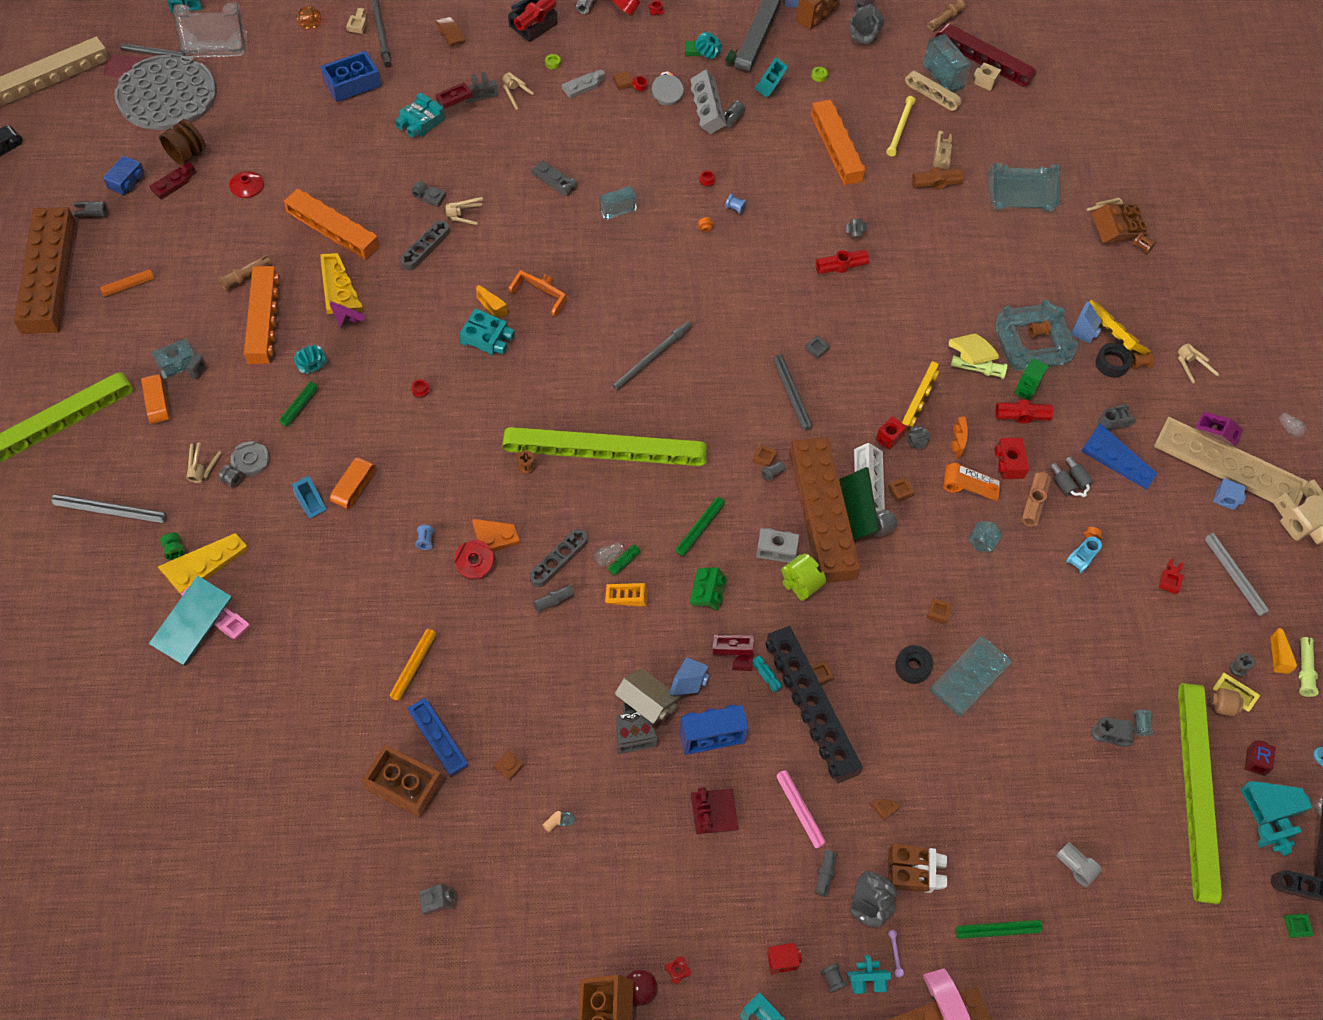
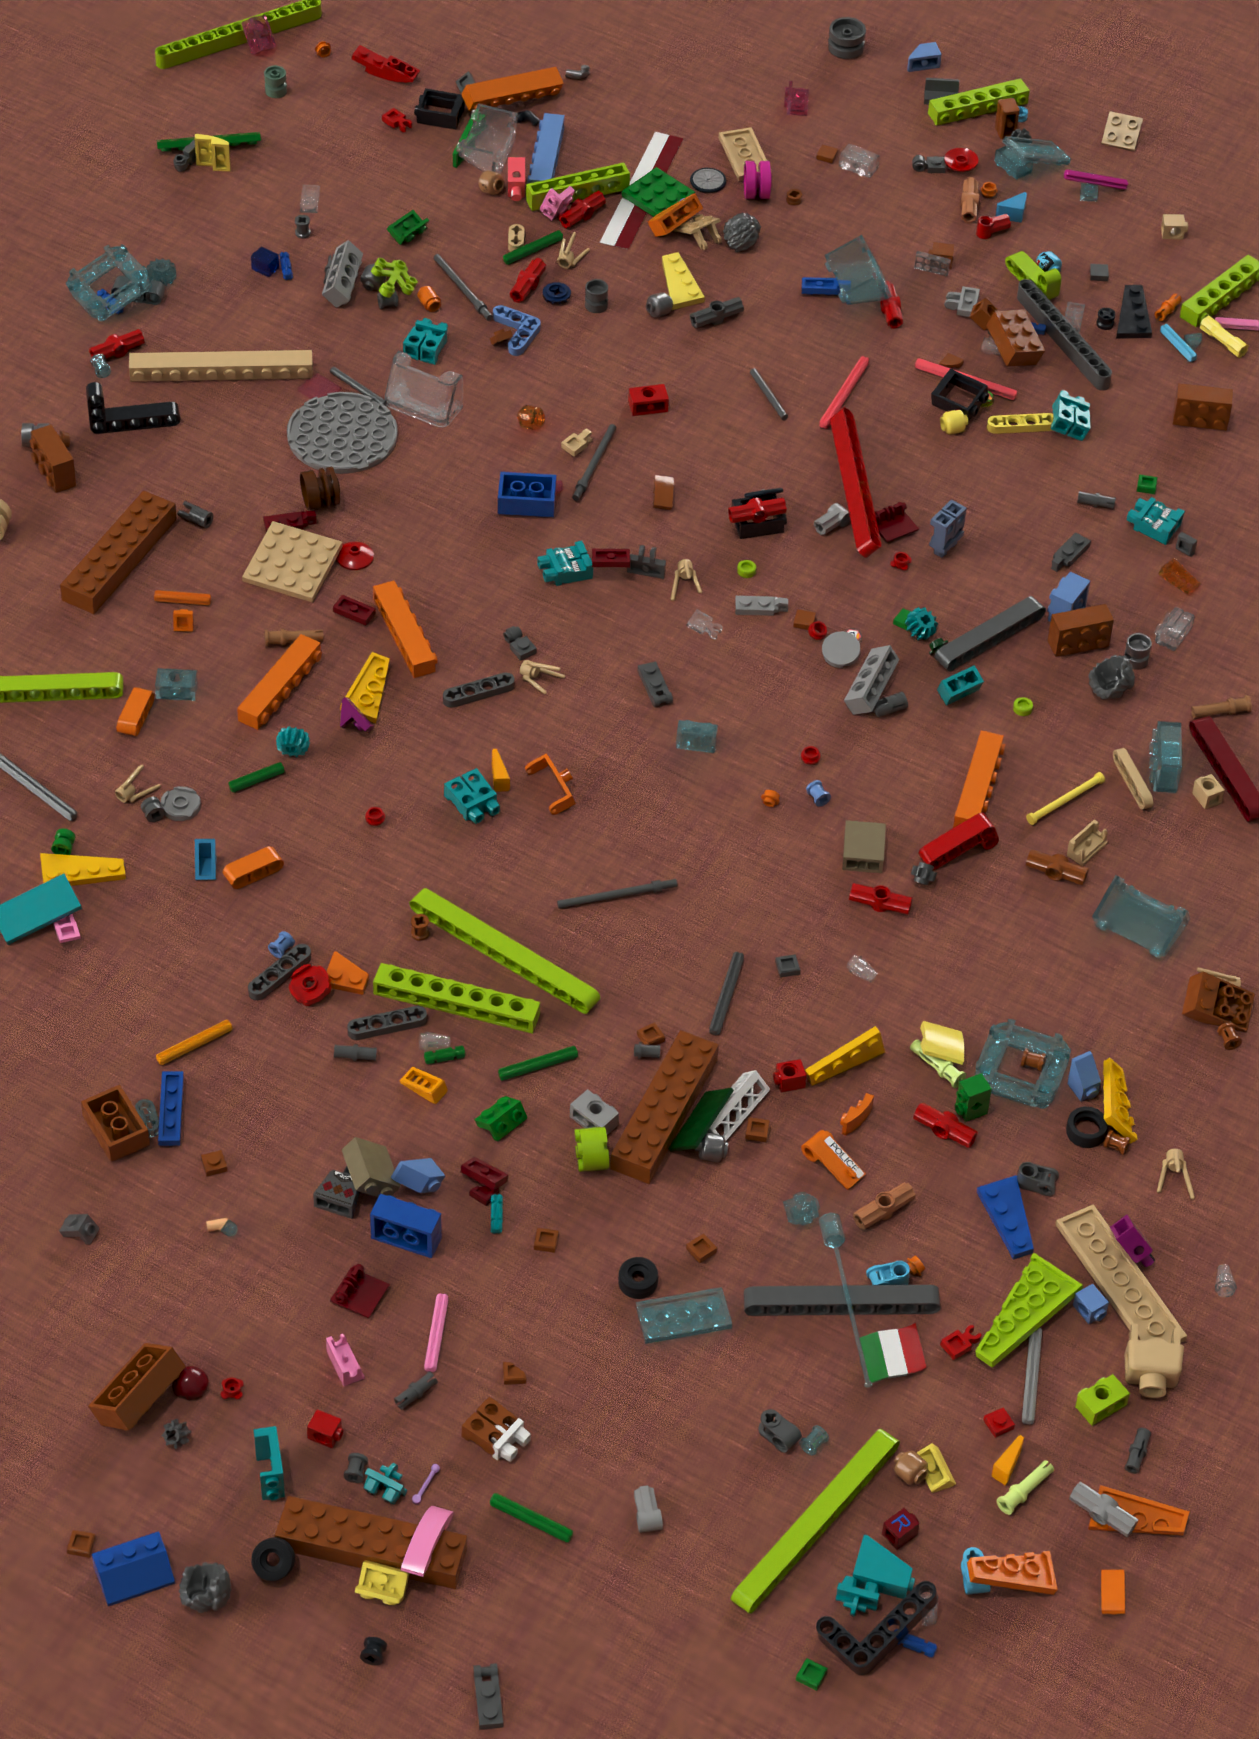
camera: 35 degrees right, 10 degrees down
(123, 175) = (247, 496): blue brick -> none
(142, 301) = (183, 620): none -> orange tile
(196, 366) = (190, 700): dark grey tile -> none
(199, 211) = (292, 561): none -> tan plate
(279, 227) = (354, 610): none -> dark red plate
(425, 754) = (150, 1117): none -> clear light blue beam
(436, 561) = (277, 970): none -> dark grey beam
(553, 116) = (703, 623): none -> clear plate
(592, 514) = (456, 998): none -> lime brick
(749, 883) = (343, 1360): none -> bright pink hinge
(799, 228) = (864, 846): none -> dark tan brick
(840, 770) = (533, 1194): black brick -> none
(870, 179) = (959, 840): none -> red beam
(870, 321) = (861, 968): none -> clear cone
(873, 899) = (439, 1429): dark grey hair -> none
(918, 437) = (813, 1092): dark grey gear -> none
(1016, 466) = (891, 1169): red brick -> none
(1065, 481) = (950, 1208): dark grey piece -> none
(1067, 594) = (832, 1300): none -> dark grey beam
(1133, 612) = (883, 1352): none -> flag
(1193, 517) = (1029, 1305): none -> lime wing
(1245, 665) = (958, 1448): dark grey bush -> none
(1246, 625) = (999, 1422): none -> red plate
(1297, 564) = (1114, 1398): none -> lime brick

